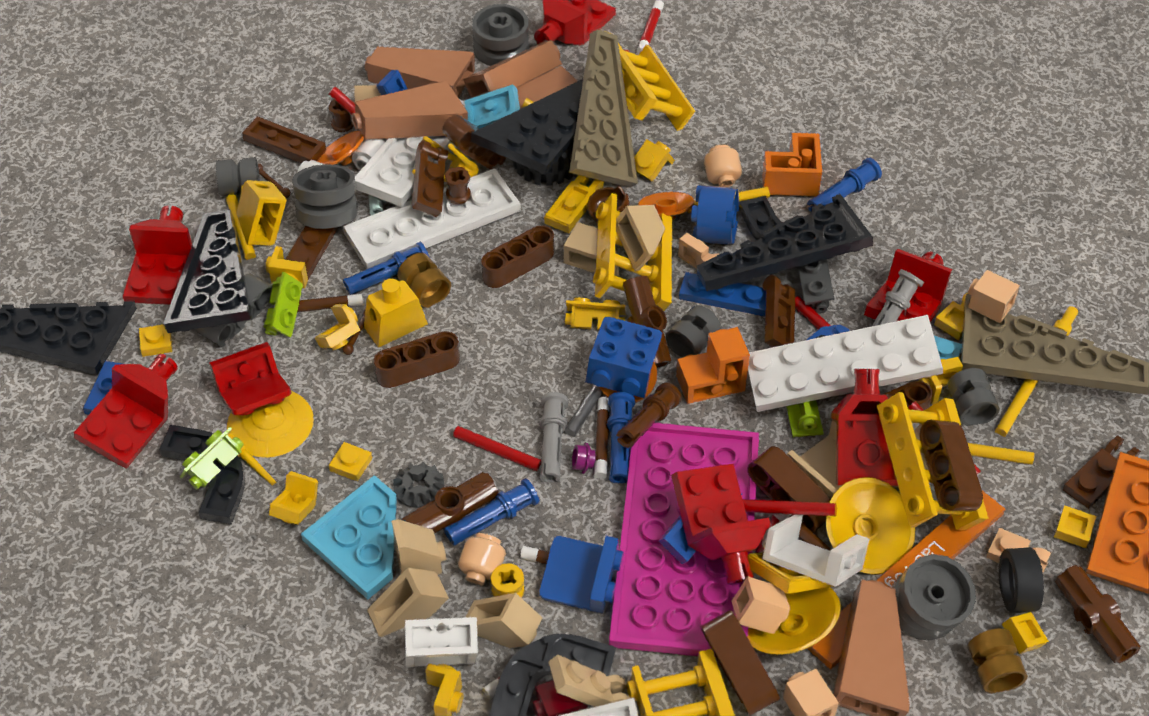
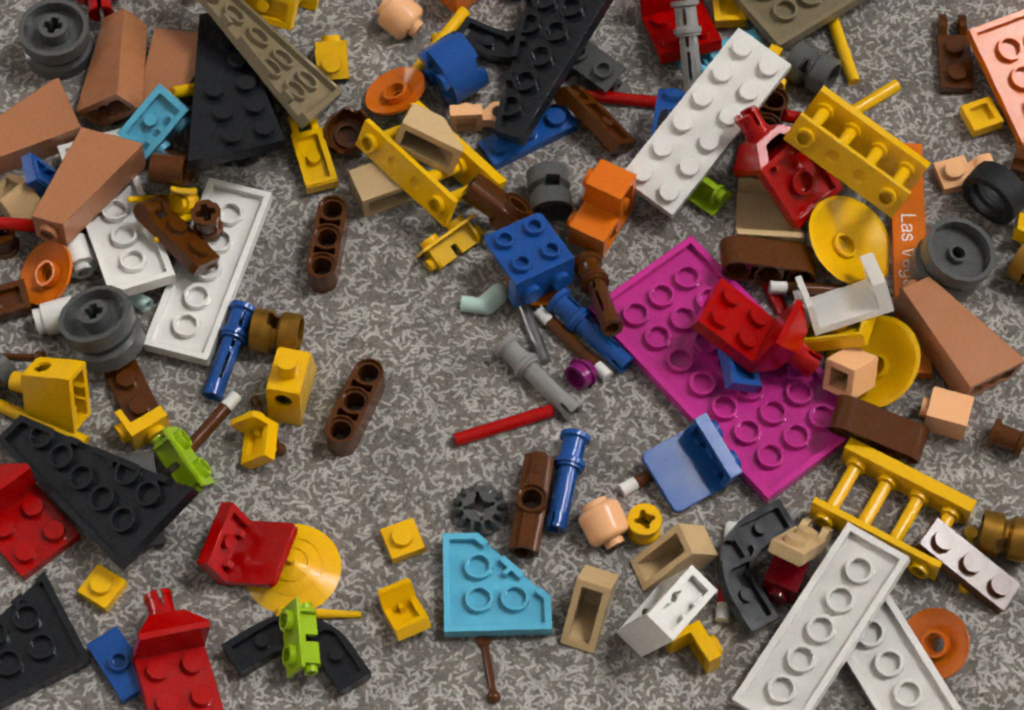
camera: 45 degrees left, 10 degrees up
(287, 603) = (493, 695): none -> reddish brown hinge
(417, 547) = (553, 563): tan slope -> none
(572, 367) = (487, 303): none -> light aqua arm
(790, 507) = (790, 275): red bar -> none
(951, 466) = (886, 158): reddish brown beam -> none

